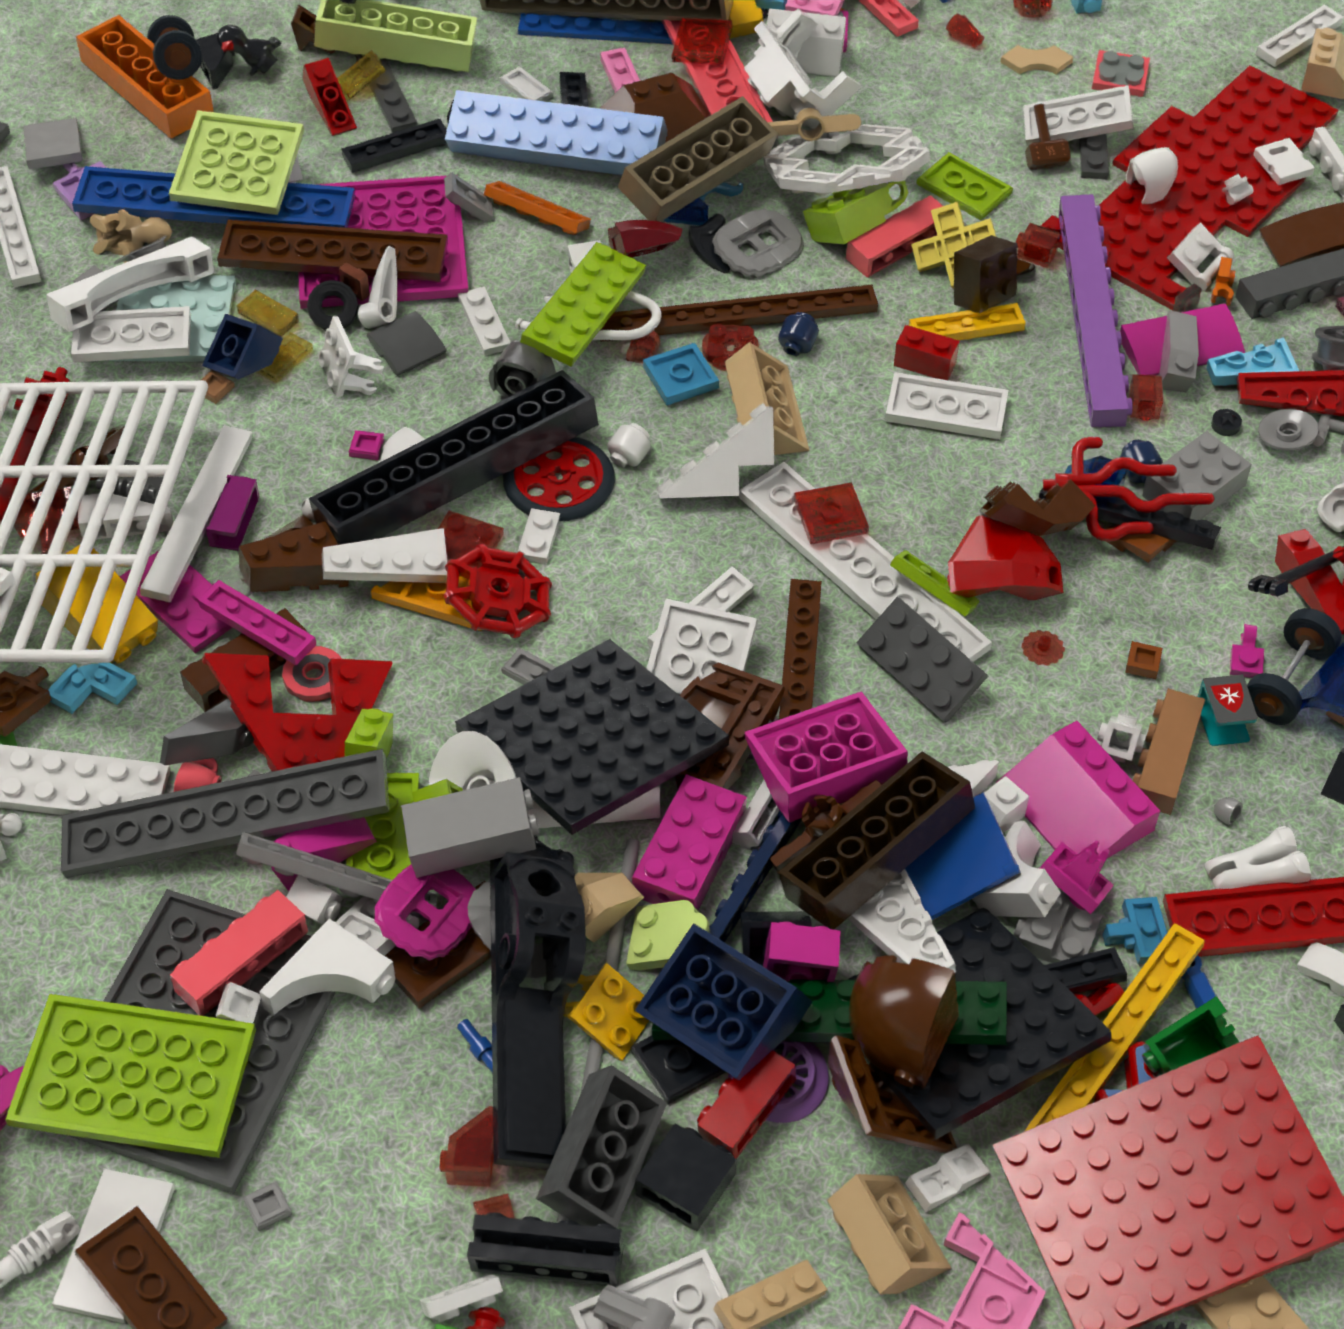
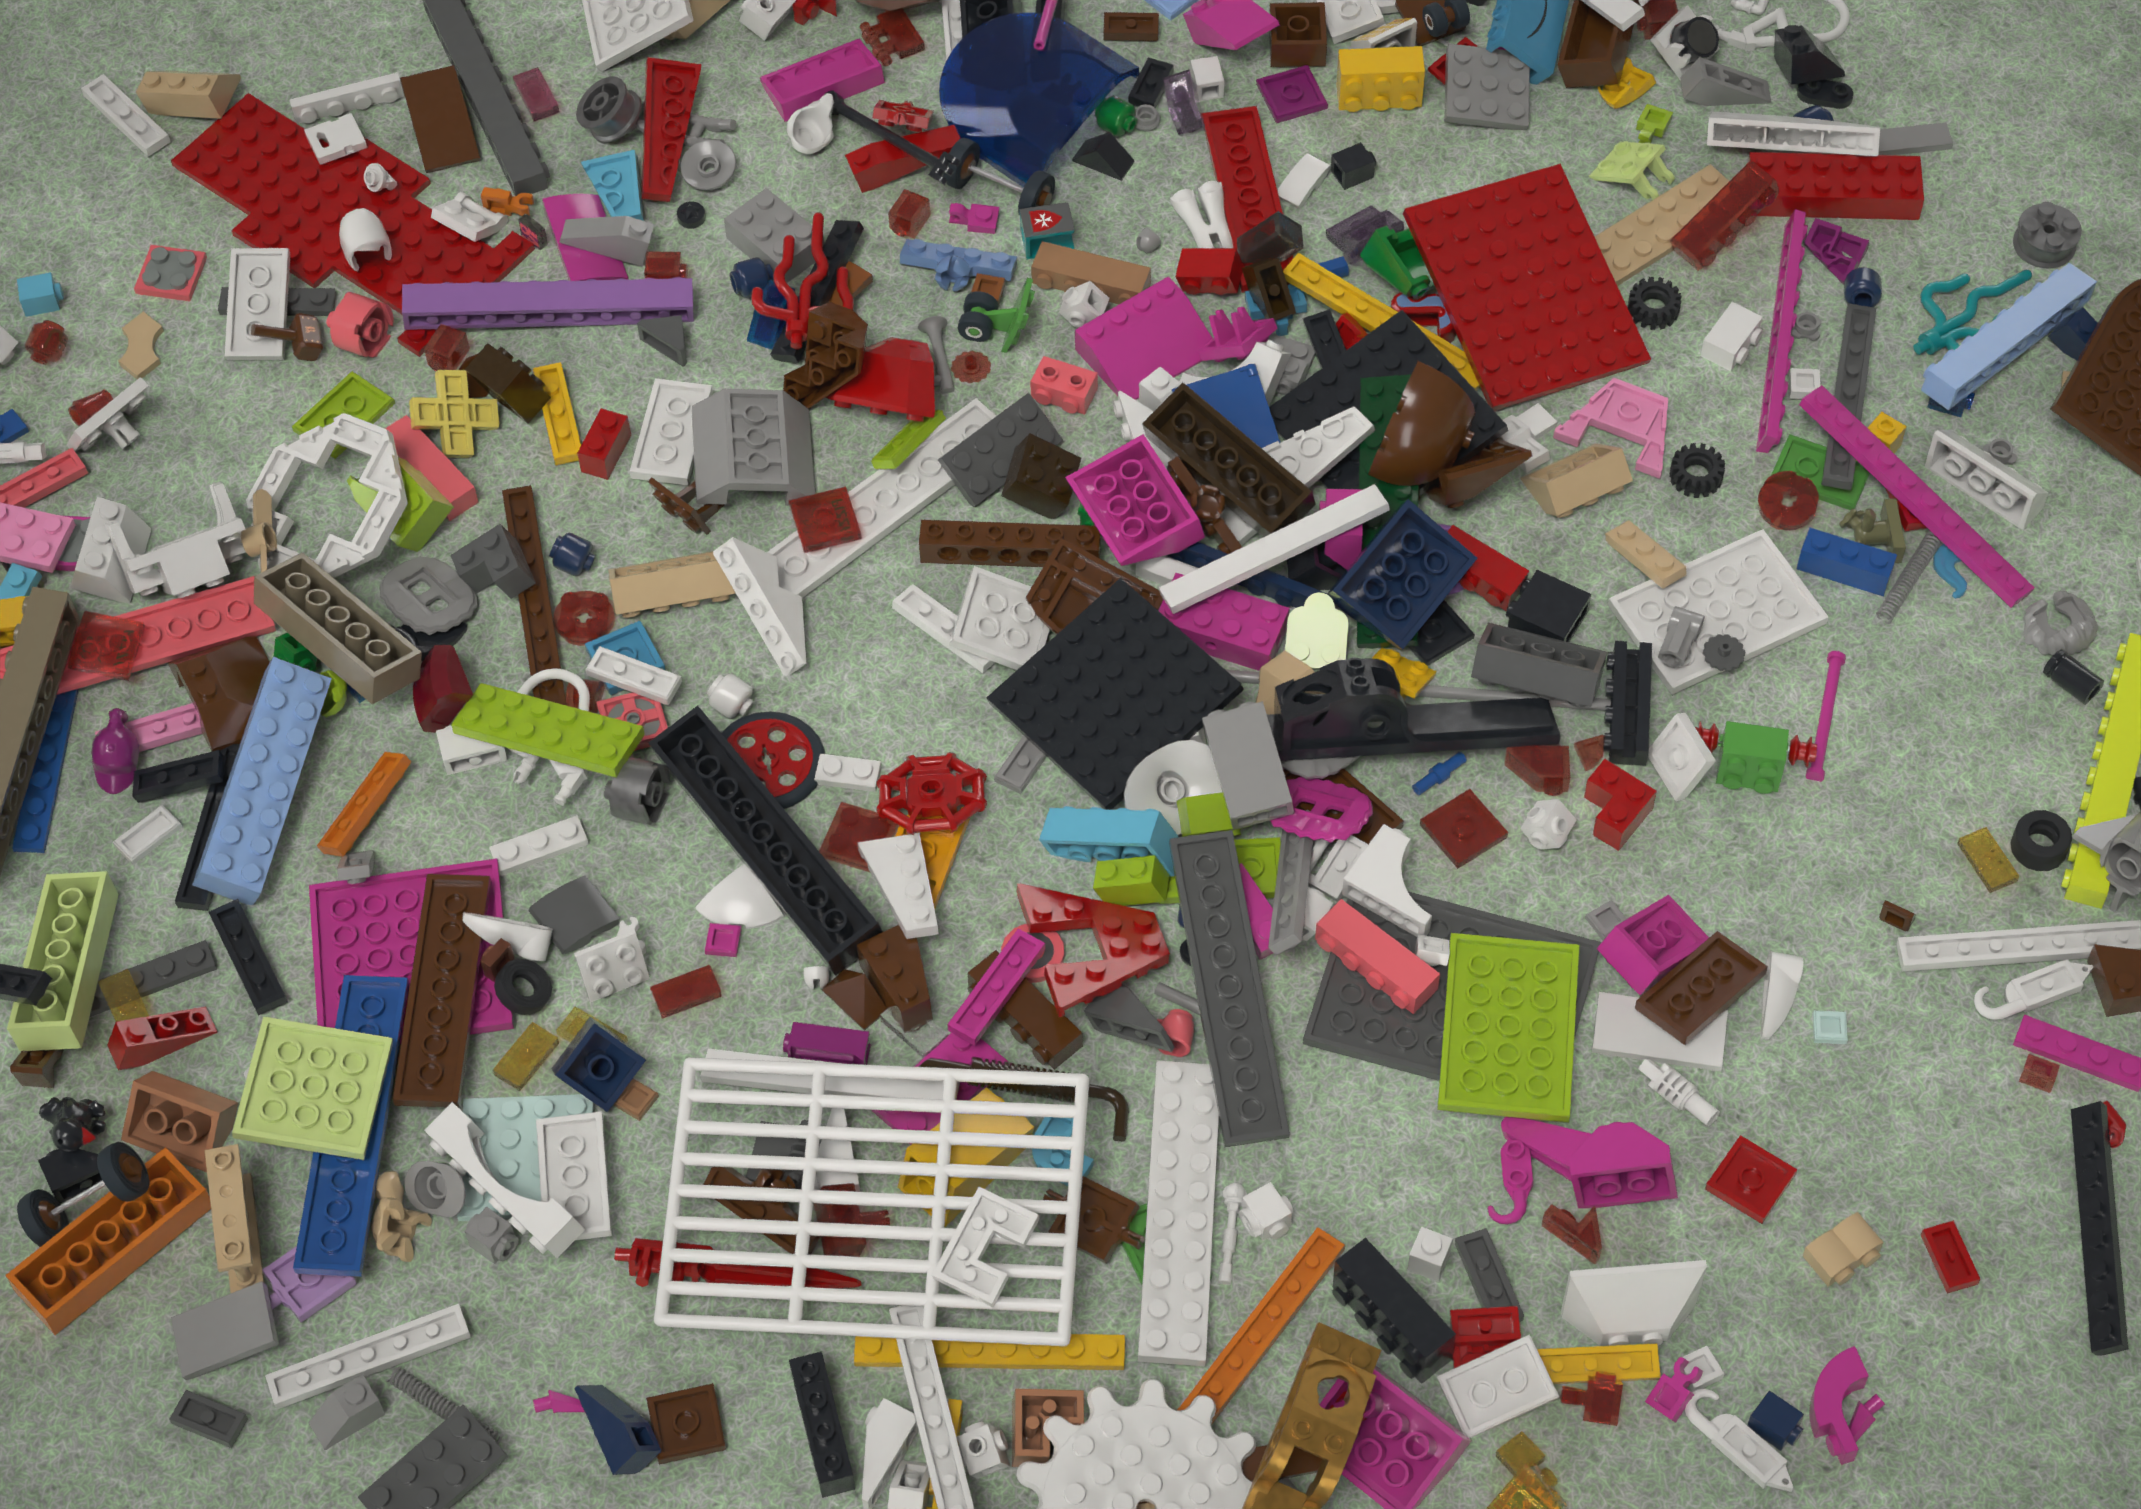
camera: 90 degrees left, 5 degrees up
(134, 154) = (234, 1218): none -> tan fence
(159, 664) = (1065, 1092): none -> dark brown piece
(222, 1248) = (1651, 943): none -> dark pink slope
(261, 98) = (177, 1117): none -> nougat slope
(313, 416) = (685, 991): none -> clear red plate
(390, 1145) = (1548, 824): none -> white brick
(405, 1065) = (1463, 828): none -> clear red plate
(412, 1233) = (1623, 803): none -> red brick
(418, 728) = (1107, 834): none -> medium azure wedge
(604, 54) = (115, 754): none -> magenta hair
(610, 379) = (636, 710): none -> coral piece
(652, 373) = (633, 675): none -> white tile
(756, 875) = (1274, 549): none -> white tile
(780, 274) = (496, 560): none -> dark grey brick
(846, 400) = (678, 505): none -> reddish brown plate
(885, 681) = (1038, 476): none -> dark brown brick
(916, 461) = (751, 444): none -> light grey slope
(945, 35) = (112, 420): none -> white plate
(980, 1200) = (1538, 421): none -> white tile
(1012, 719) = (1063, 385): none -> coral brick
(1023, 621) = (933, 327): none -> light grey piece
(1056, 176) = (360, 318): none -> coral brick
(1060, 402) = (665, 336): none -> dark grey slope
(1109, 674) = (982, 316): none -> plate
(1150, 909) = (1269, 288): none -> dark brown slope
(1178, 858) = (1209, 270): none -> red brick
(1179, 635) = (956, 263): none -> medium blue plate
(1223, 918) = (1272, 238): none -> clear smoke slope
(1235, 594) = (909, 214): none -> clear red brick
(1257, 1015) = (1355, 231): none -> clear purple brick

